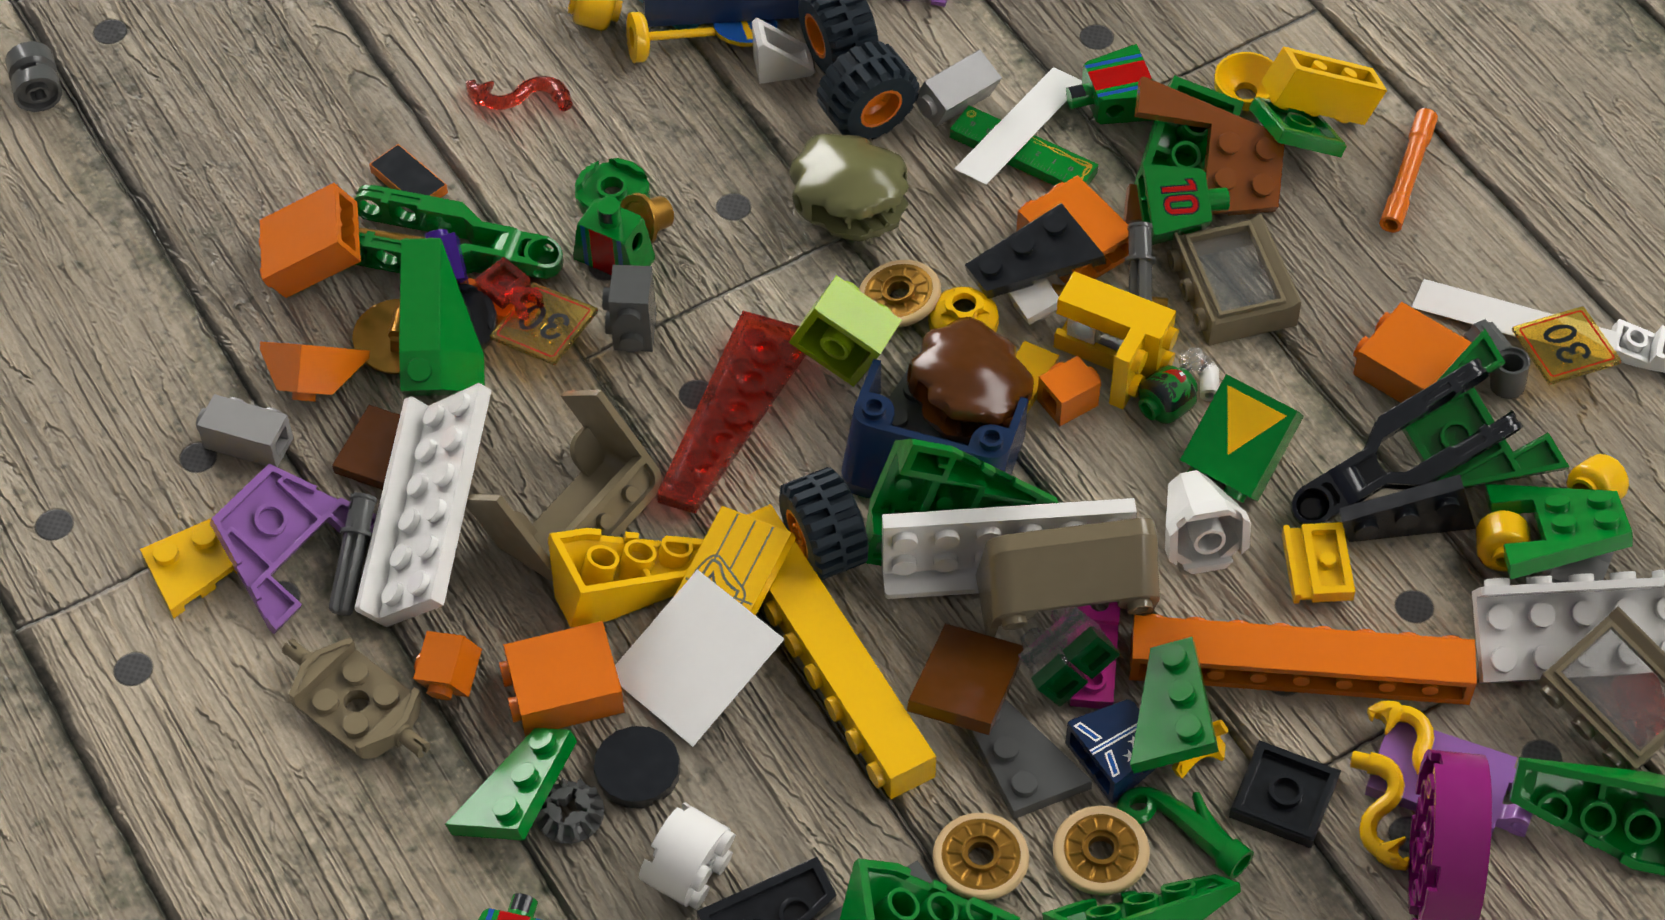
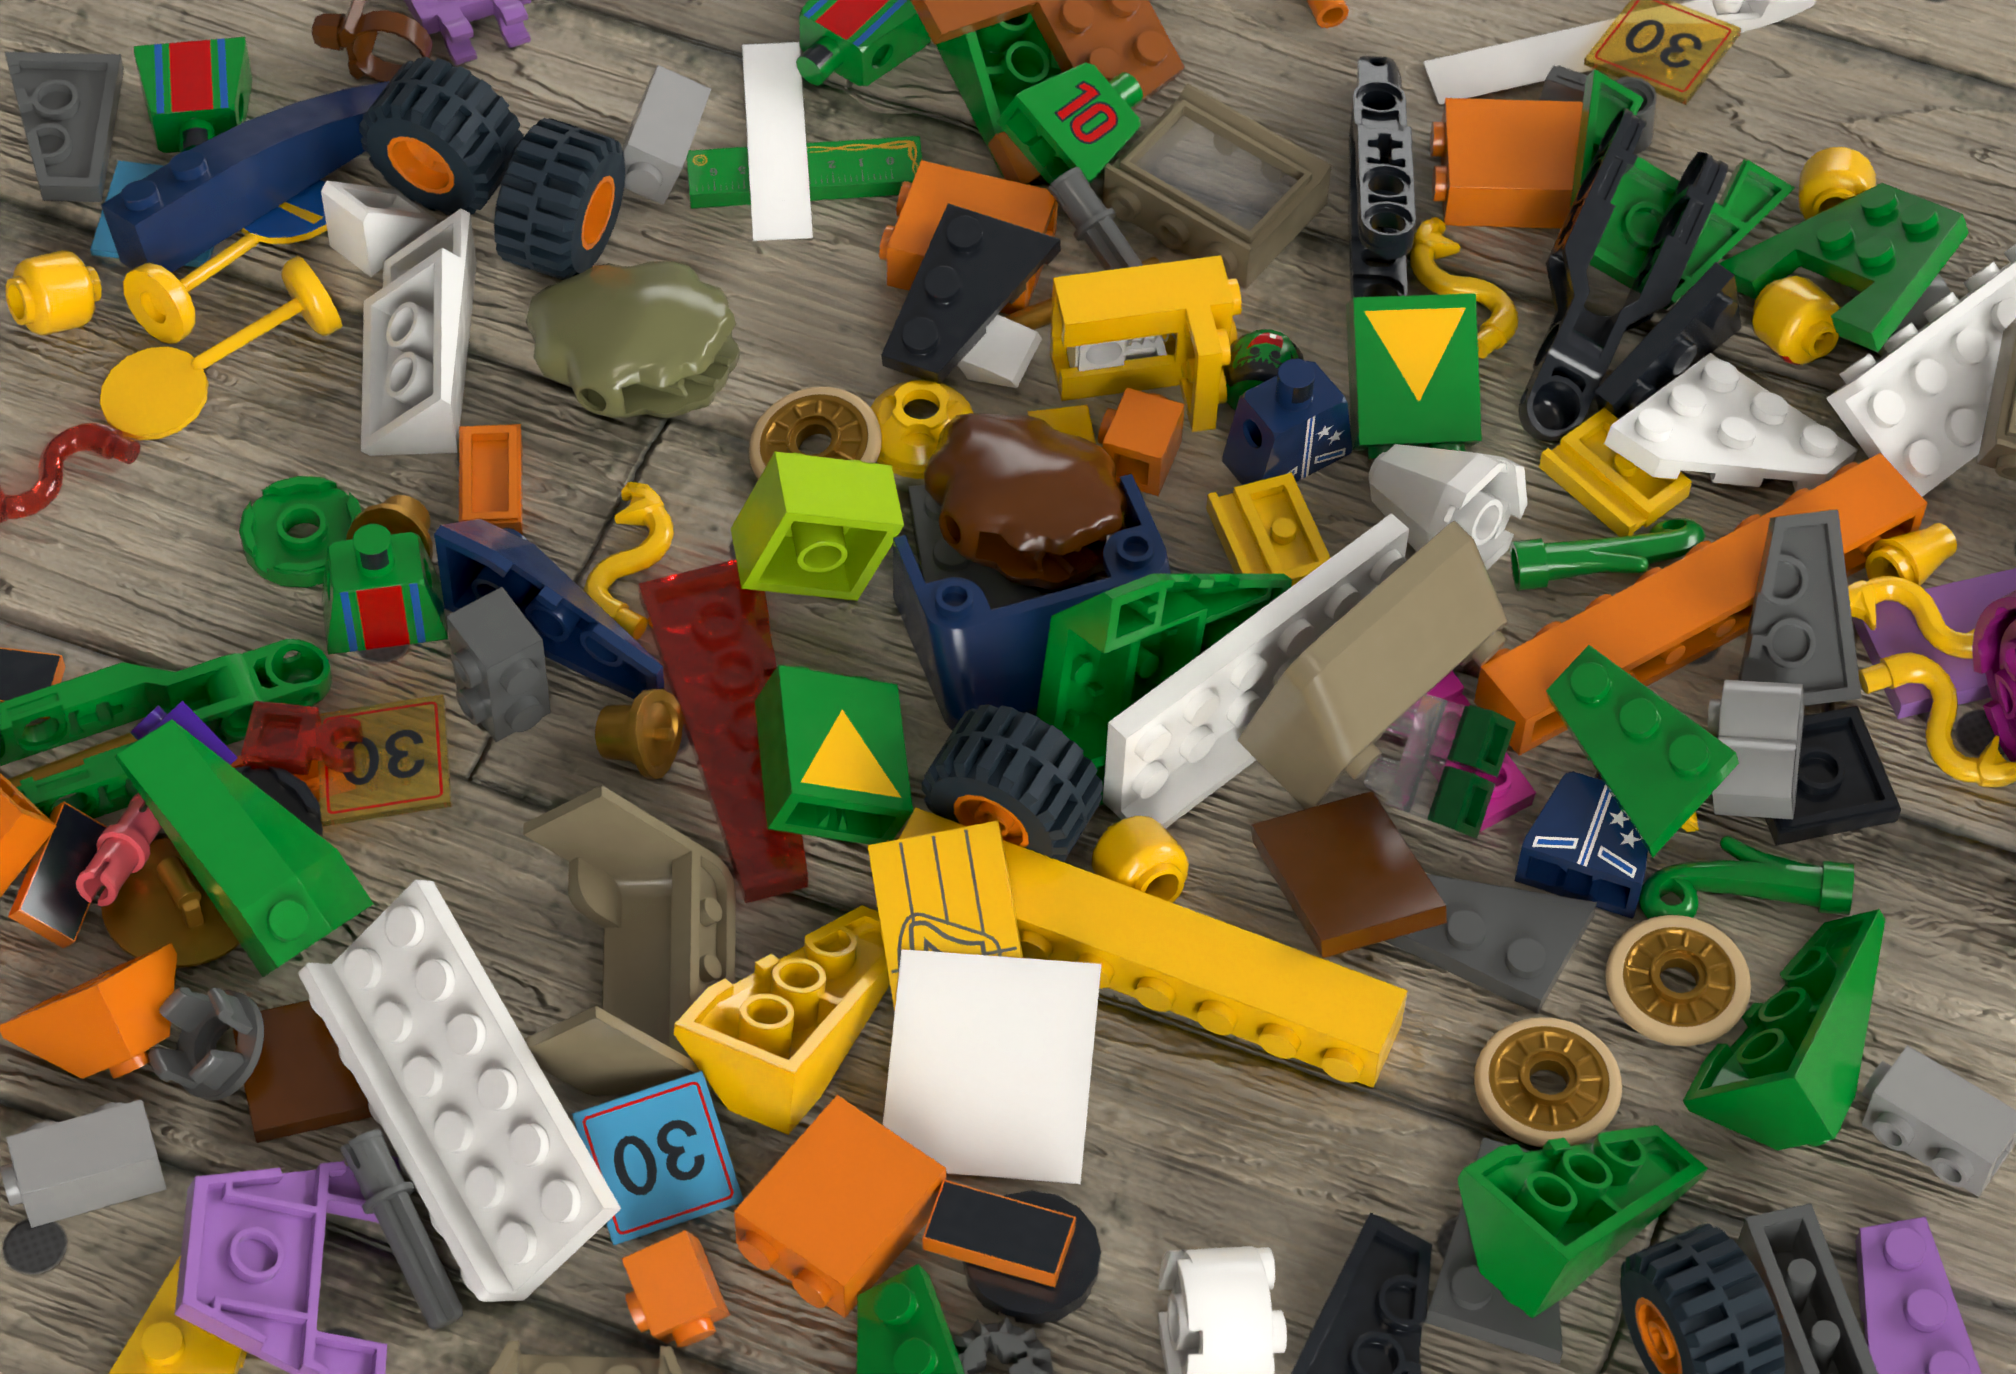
camera: 40 degrees left, 0 degrees up
(338, 419) = (203, 1020): none -> dark grey piece
(354, 289) = (48, 893): none -> black tile
(382, 295) = (120, 851): none -> coral pin
(497, 596) = (660, 1156): none -> dark azure piece
(611, 80) = (166, 387): none -> yellow piece
(624, 742) = (999, 1233): none -> black tile
(678, 386) = (642, 732): none -> pearl gold piece
(681, 282) = (574, 629): none -> dark blue wedge
(723, 218) = (491, 475): none -> orange tile
(750, 130) = (419, 343): none -> white slope
(755, 452) = (832, 756): none -> green brick
(784, 276) = (644, 510): none -> yellow animal
(867, 605) = (1142, 856): none -> yellow head
(1094, 473) = (1268, 529): none -> yellow plate
(1149, 428) = (1288, 425): none -> dark blue torso
(1208, 371) = (1278, 317): arm -> none
(1228, 583) = (1539, 562): none -> green plant
(1251, 754) = (1766, 732): none -> light grey brick
(1329, 379) = (1432, 245): none -> yellow animal
(1338, 311) = (1380, 181): none -> black piece
(1340, 702) = (1803, 611): none -> dark grey wing
(1403, 575) = (1729, 428): none -> white plate
(1450, 710) = (1912, 554): none -> yellow cone

